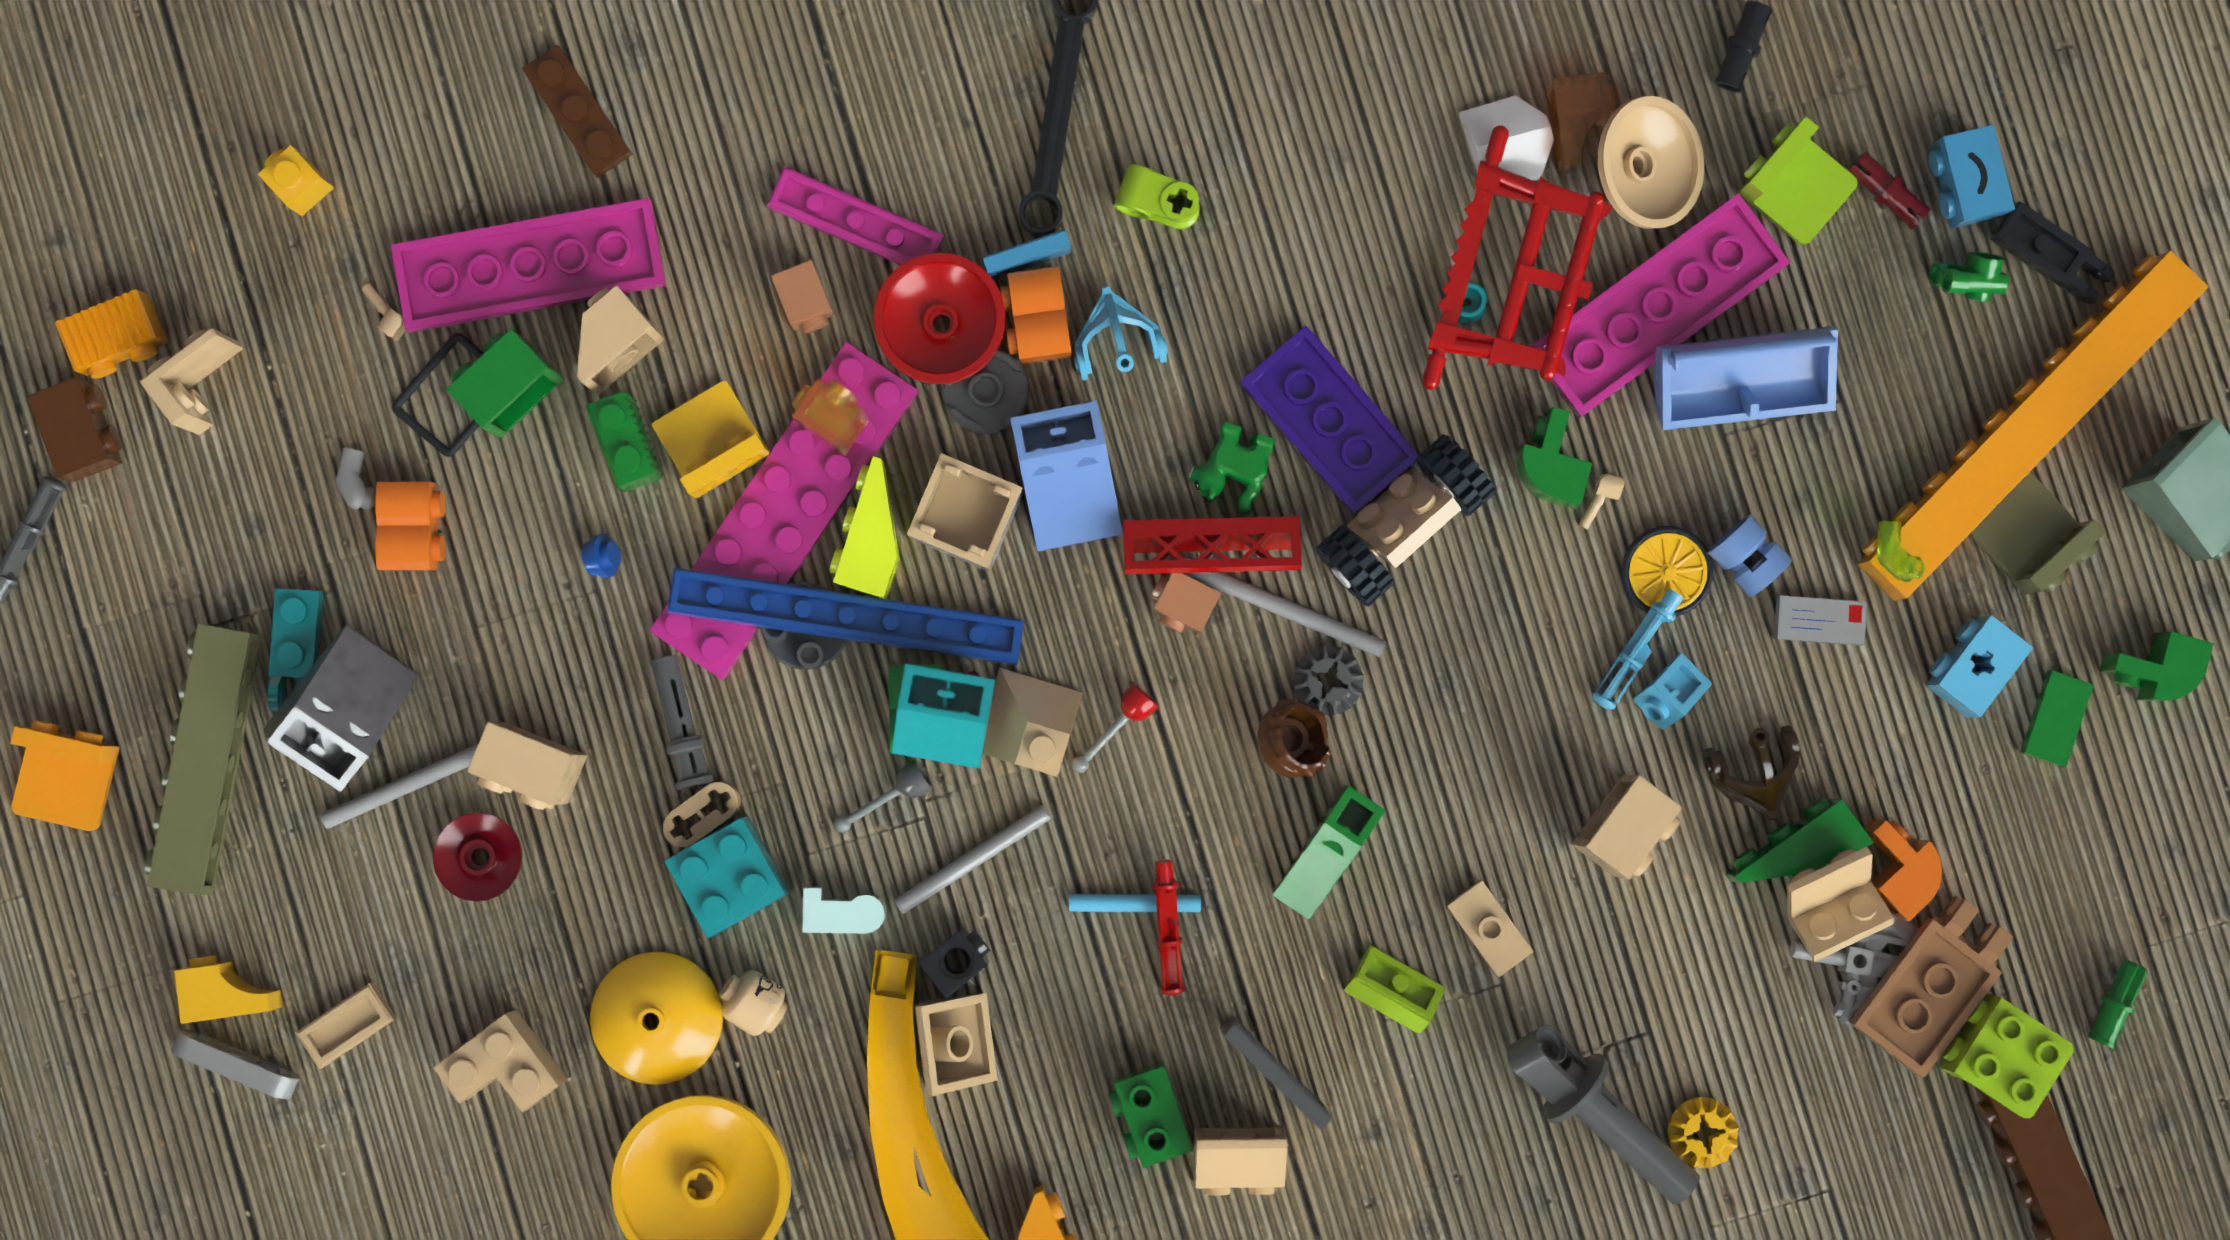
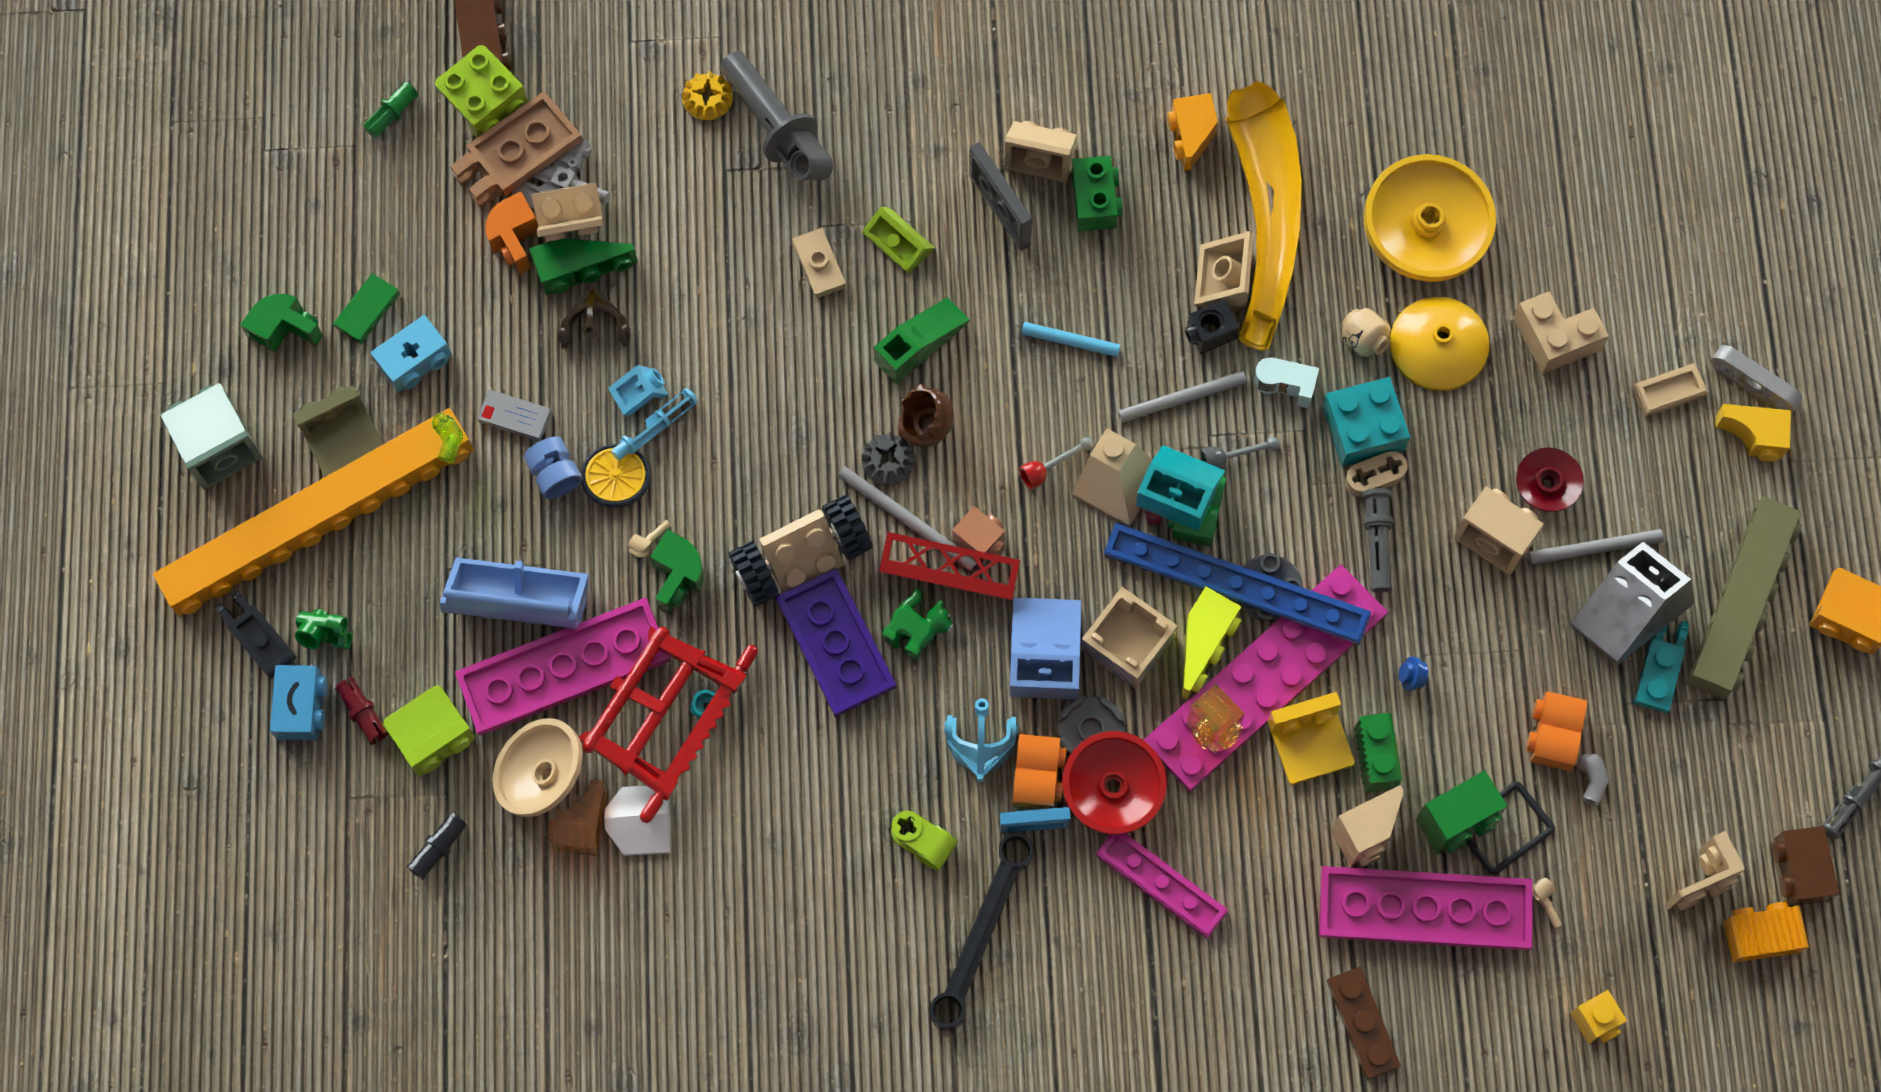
camera: 155 degrees left, 15 degrees down
(803, 297) = (1215, 829): nougat brick -> none
(1168, 928) = (1052, 307): red piece -> none
(1628, 827) = (701, 299): tan brick -> none

